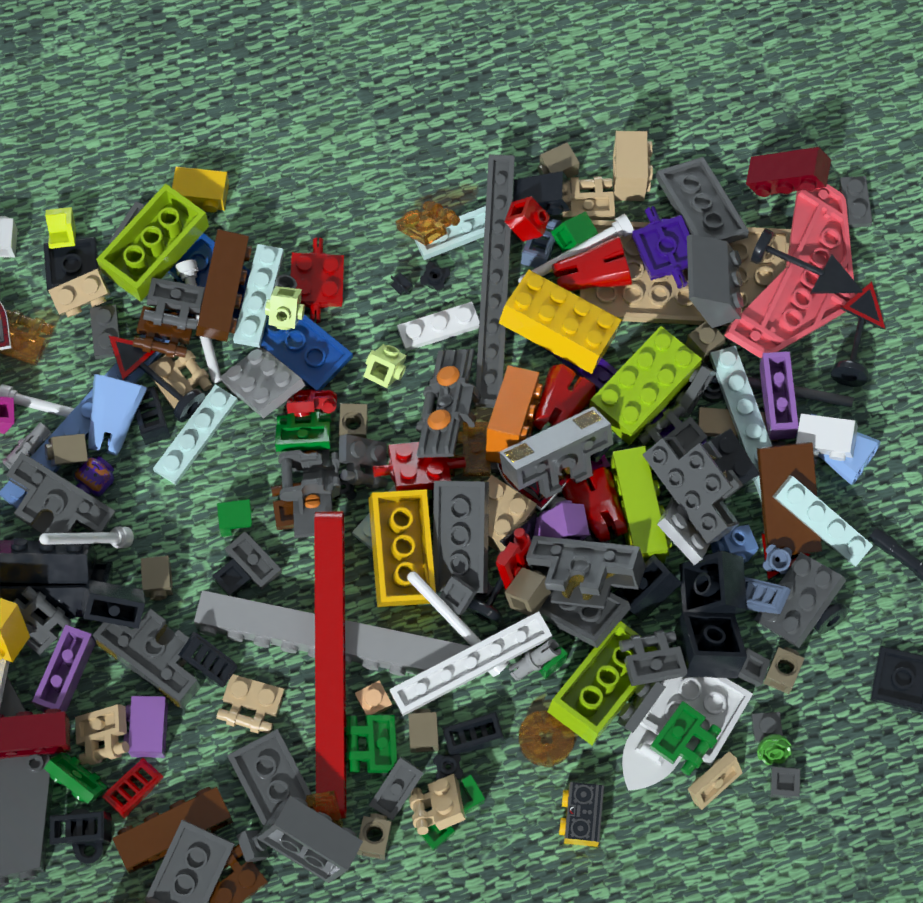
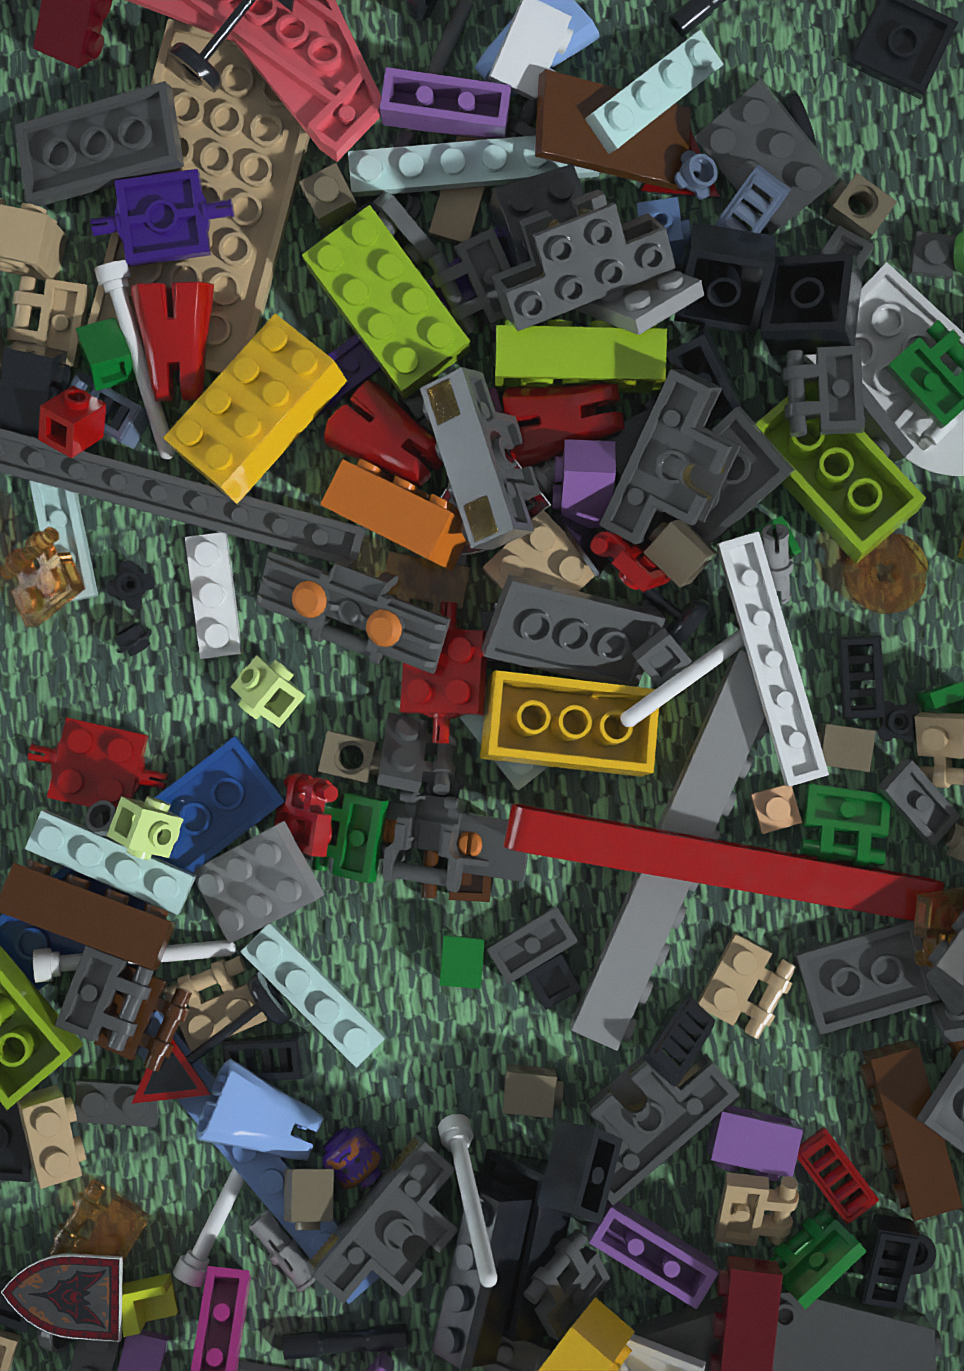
camera: 80 degrees left, 20 degrees up
(714, 279) = (244, 150): dark grey slope -> none

